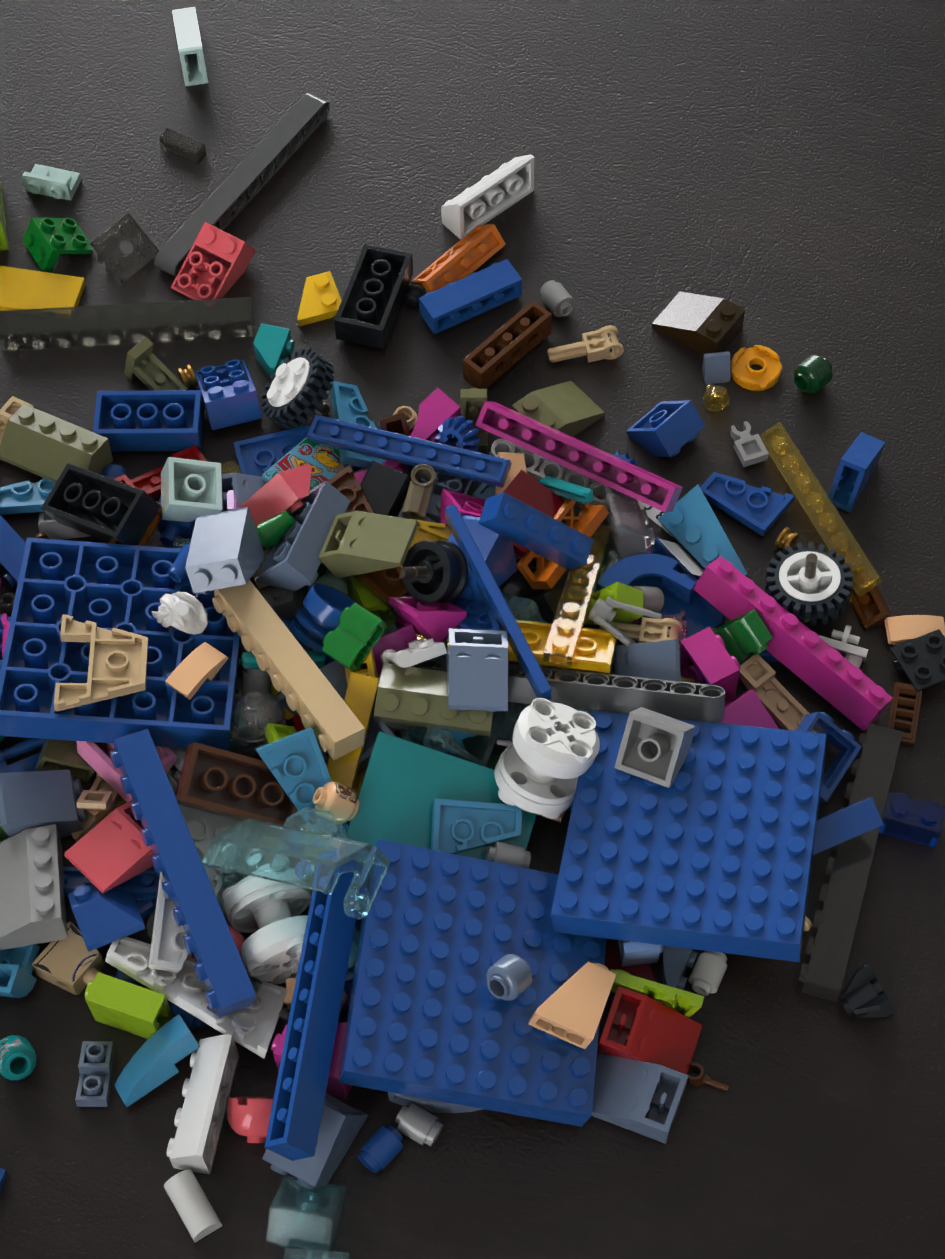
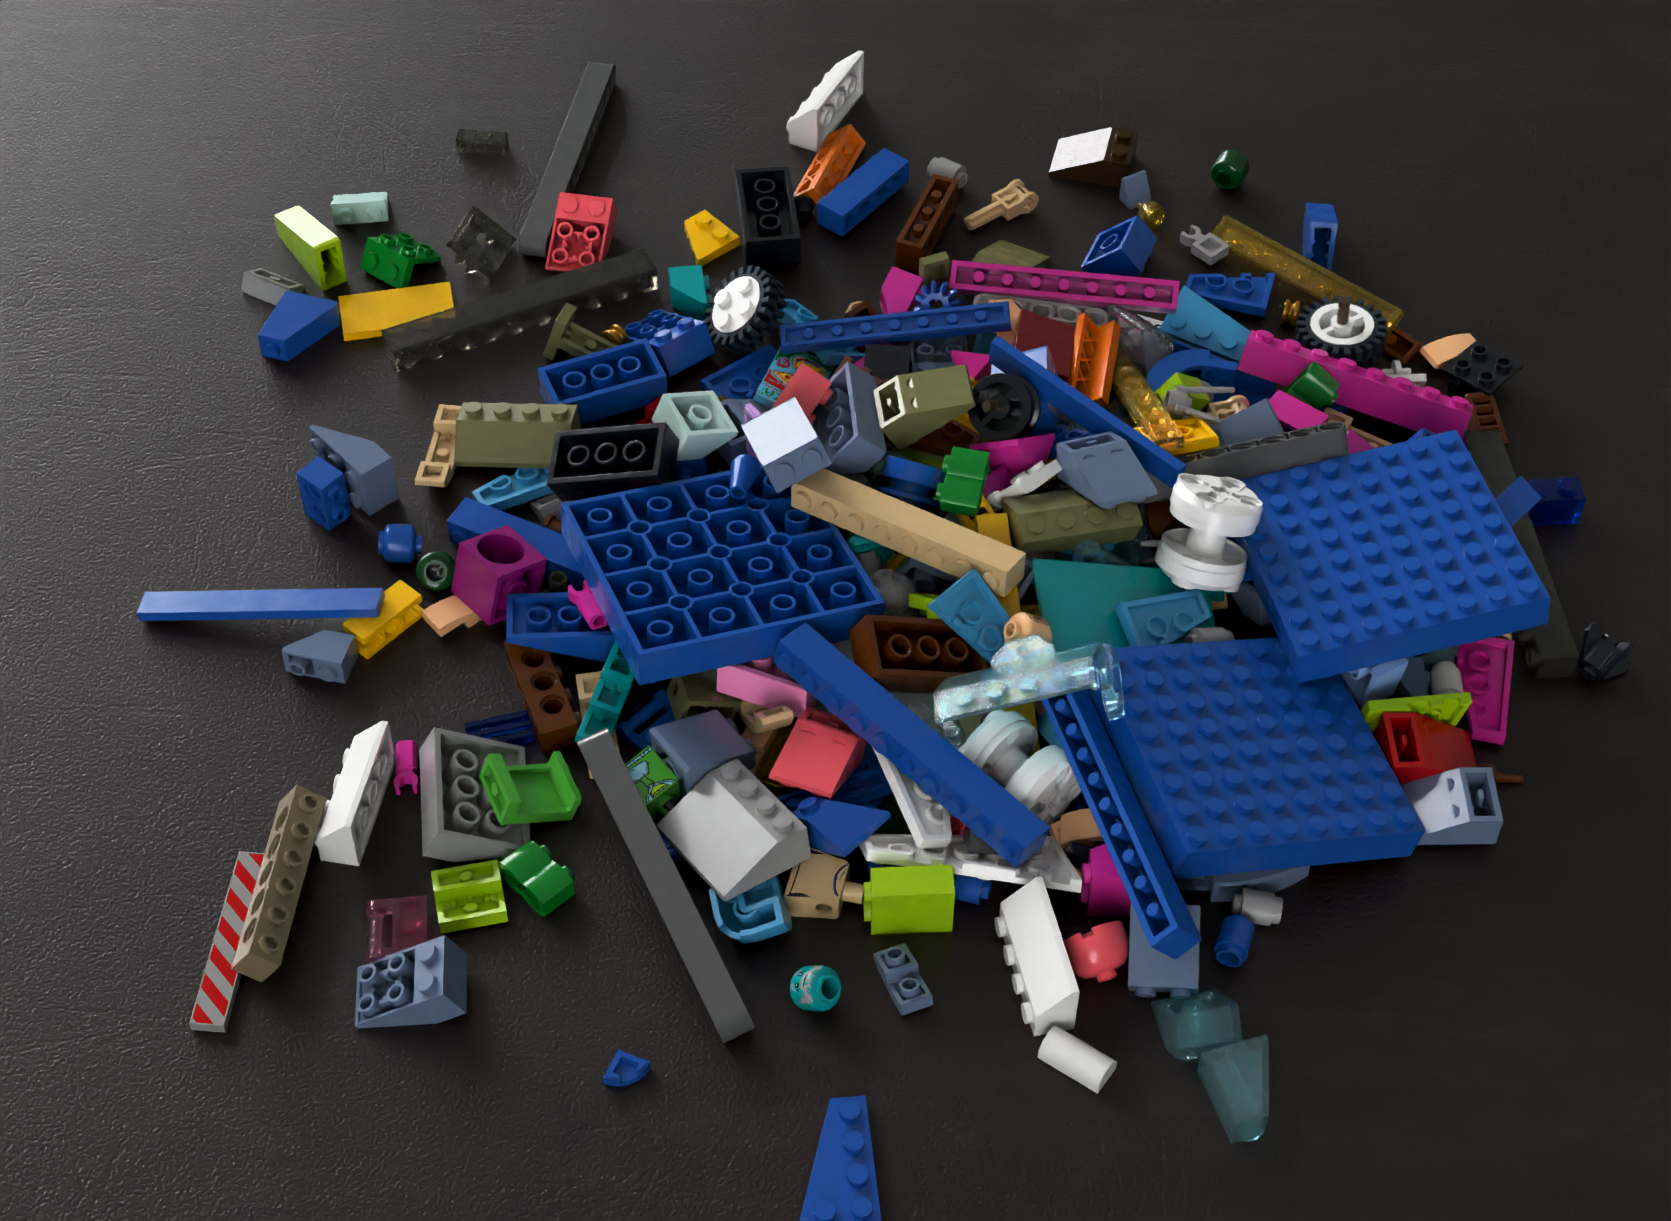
camera: 25 degrees left, 10 degrees down
(114, 668) = (734, 573): tan wing -> none
(156, 1060) = (965, 938): dark azure slope -> none
(182, 612) = (767, 517): white hat -> none
(190, 46) = (440, 51): light aqua slope -> none
(195, 669) = (819, 560): light nougat slope -> none
(274, 528) = (820, 415): green cone -> none
(419, 493) = (928, 350): dark tan piece -> none
(509, 977) = (1289, 726): sand blue head -> none
(536, 531) = (1080, 345): blue brick -> none
(568, 490) = (1081, 312): teal axle -> none
(576, 1006) = (1363, 736): light nougat slope -> none
(654, 746) = (1310, 486): light grey slope -> none
(691, 565) = (1214, 352): white sticker -> none
(740, 995) = (1487, 676): none -> dark pink wing
(756, 379) = (1166, 192): light orange tile -> none

